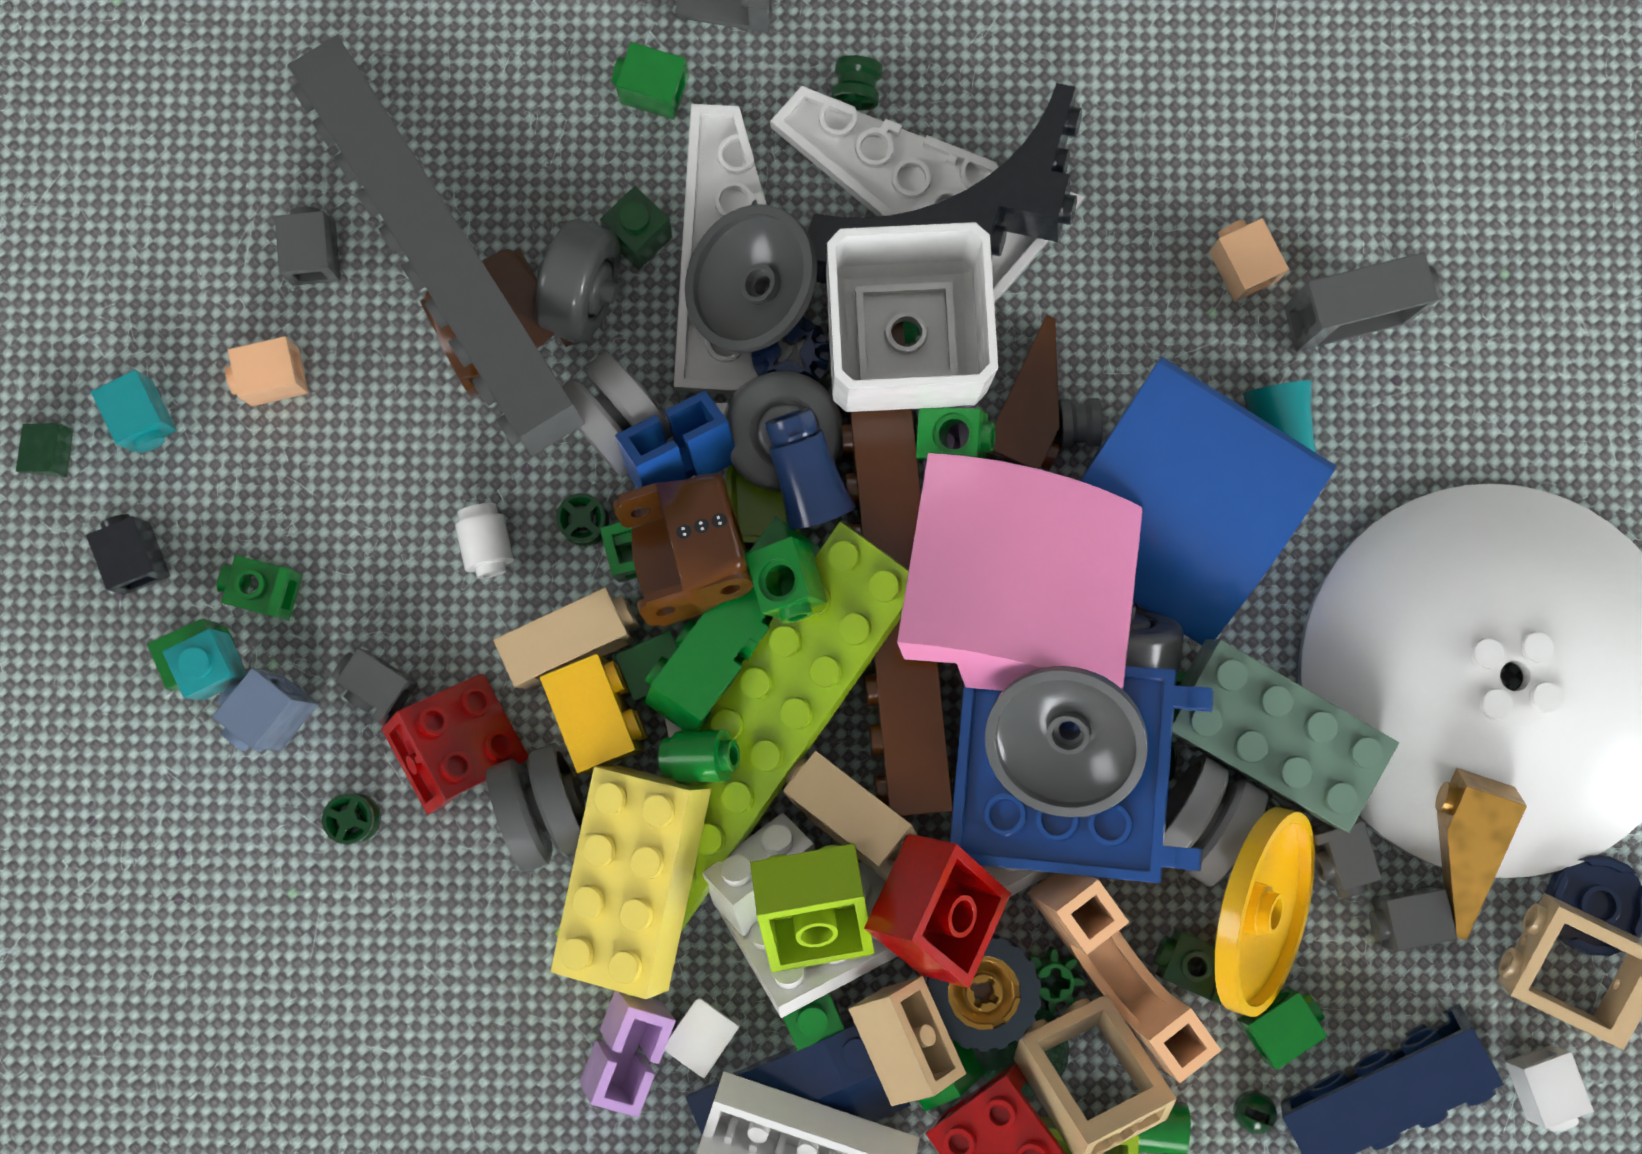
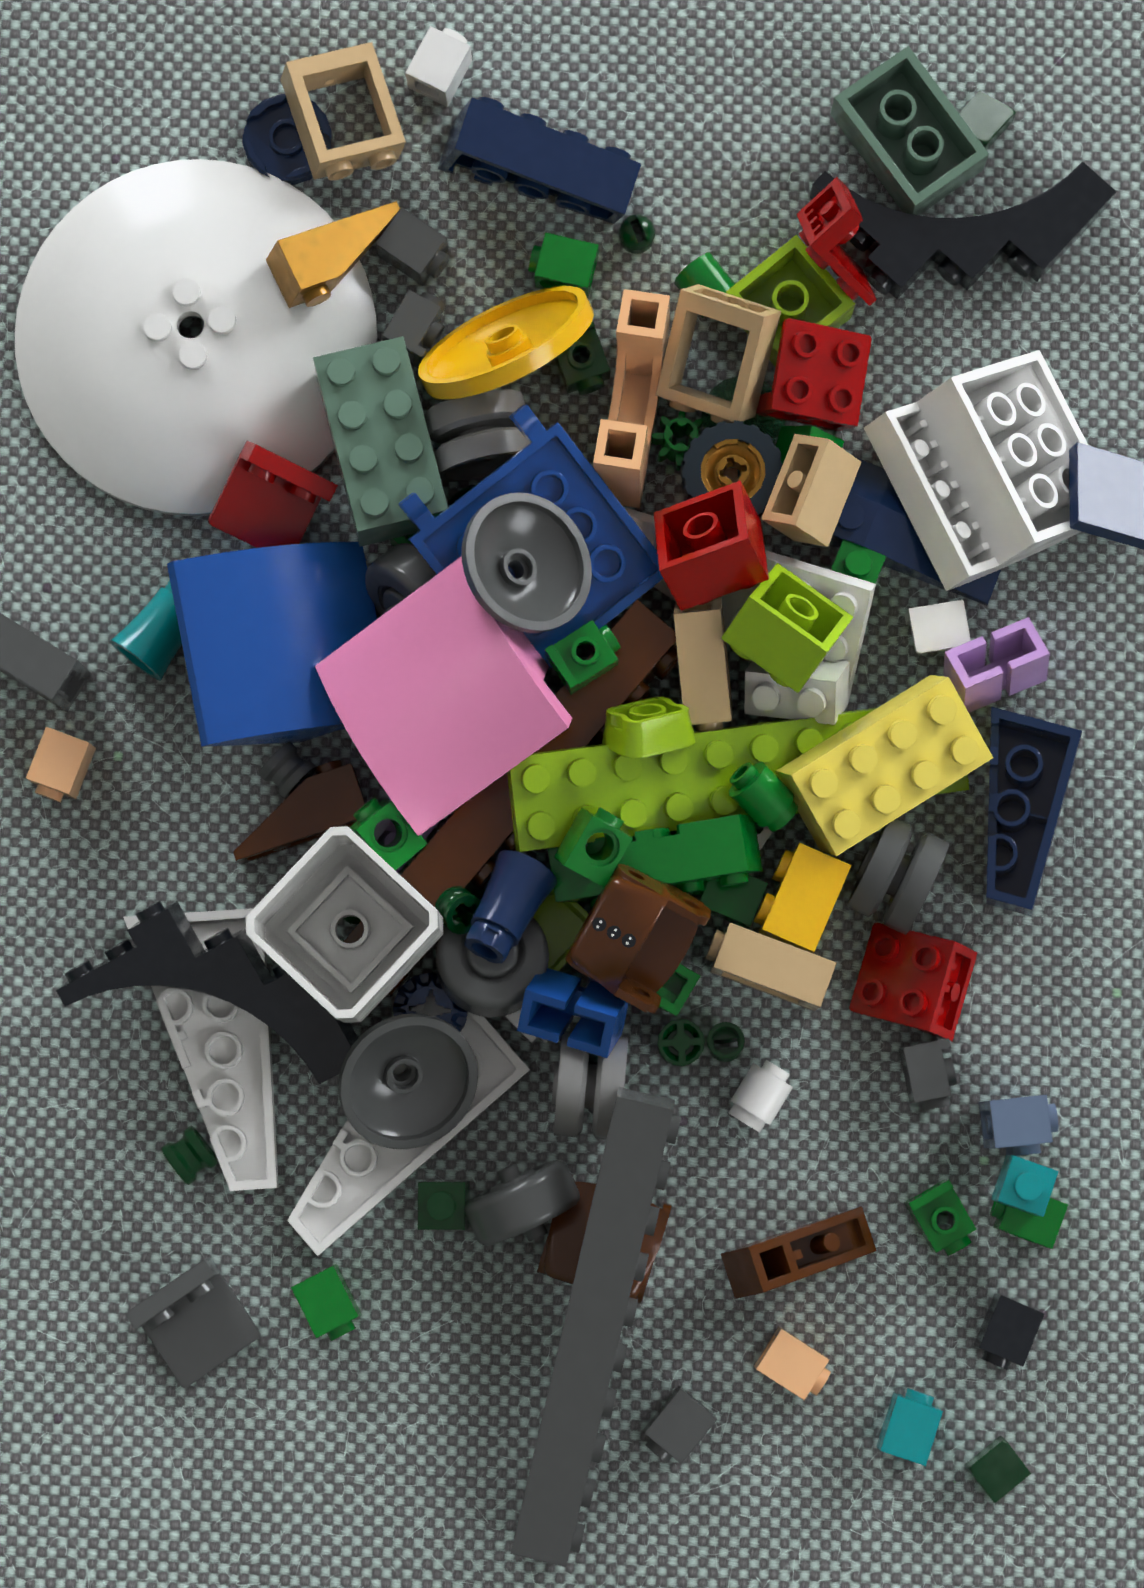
camera: 130 degrees left, 0 degrees up
(341, 453) = (798, 1253): none -> reddish brown slope
(341, 816) = (1037, 995): dark green wheel -> none
(497, 964) = (1025, 803): none -> dark blue wedge
(557, 561) = (722, 1034): none -> dark green hinge
(839, 716) = (648, 728): none -> lime piece
(853, 428) = (449, 901): none -> dark green bush
(952, 699) = (577, 672): none -> green brick
(1309, 606) = (268, 499): none -> red bracket

